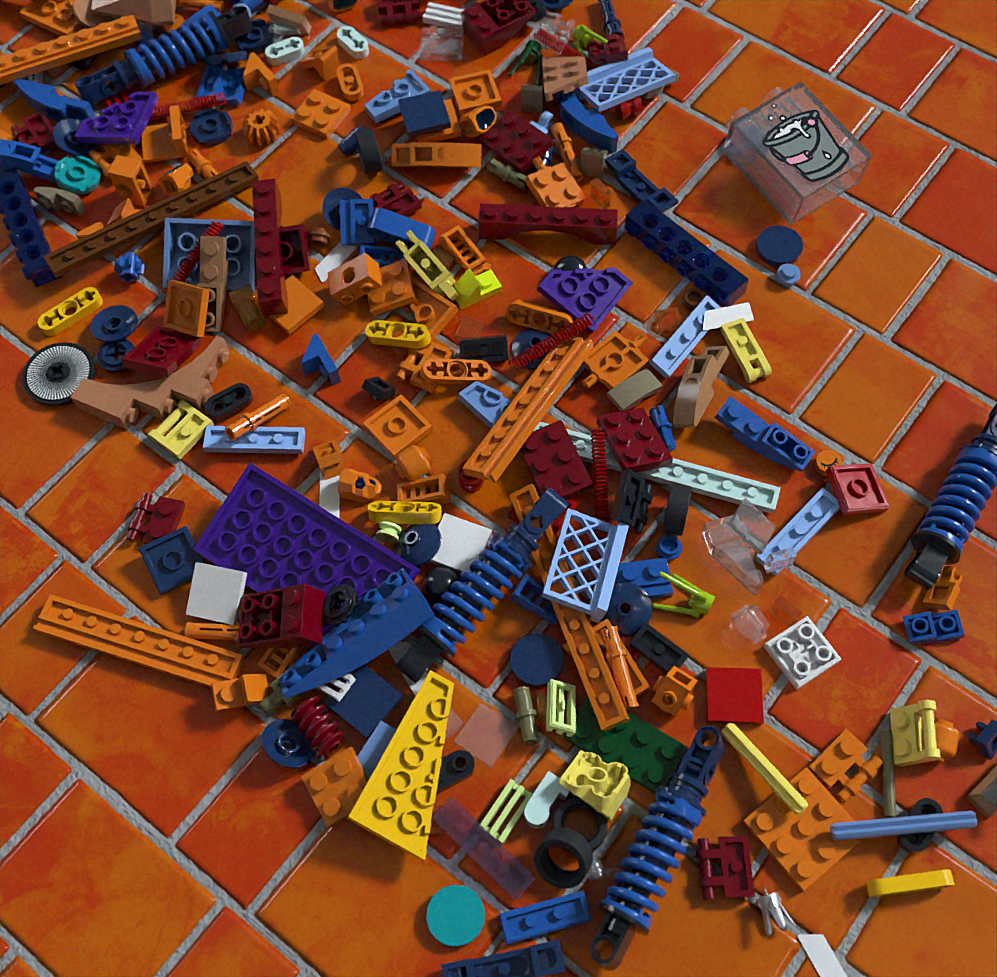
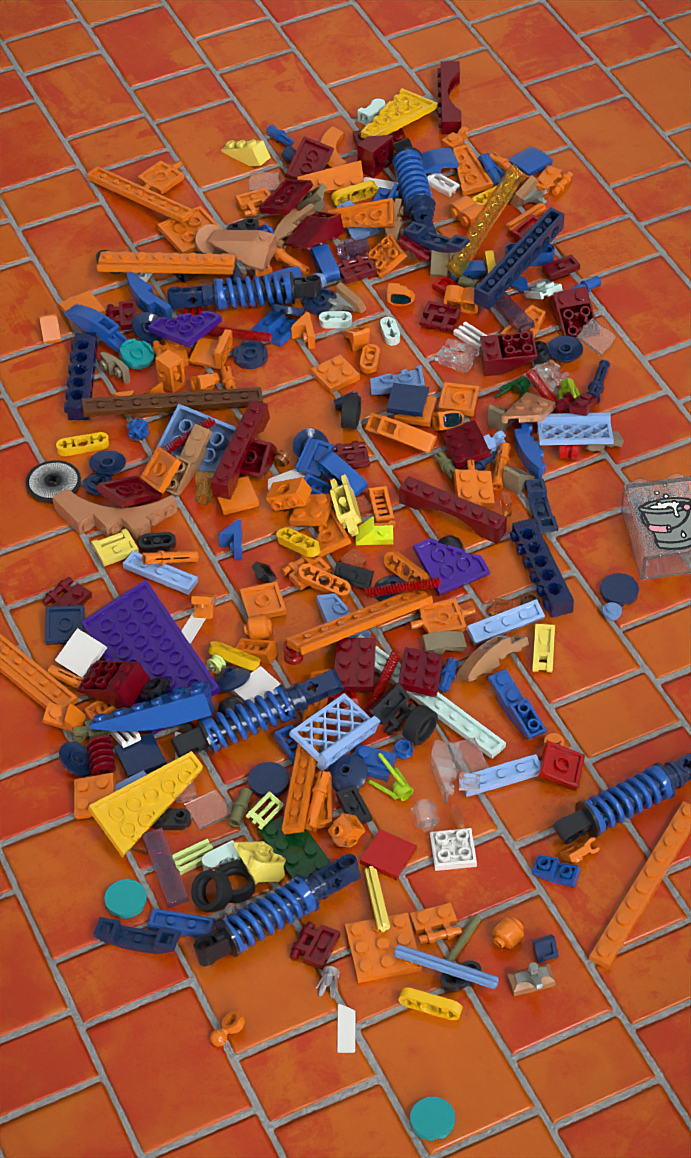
camera: 25 degrees right, 15 degrees down
(261, 127) = (285, 367): orange gear -> none
(358, 486) = (212, 628): orange rock -> none
(720, 316) = (534, 617): white sticker -> none
(907, 733) = (493, 916): light yellow plate -> none

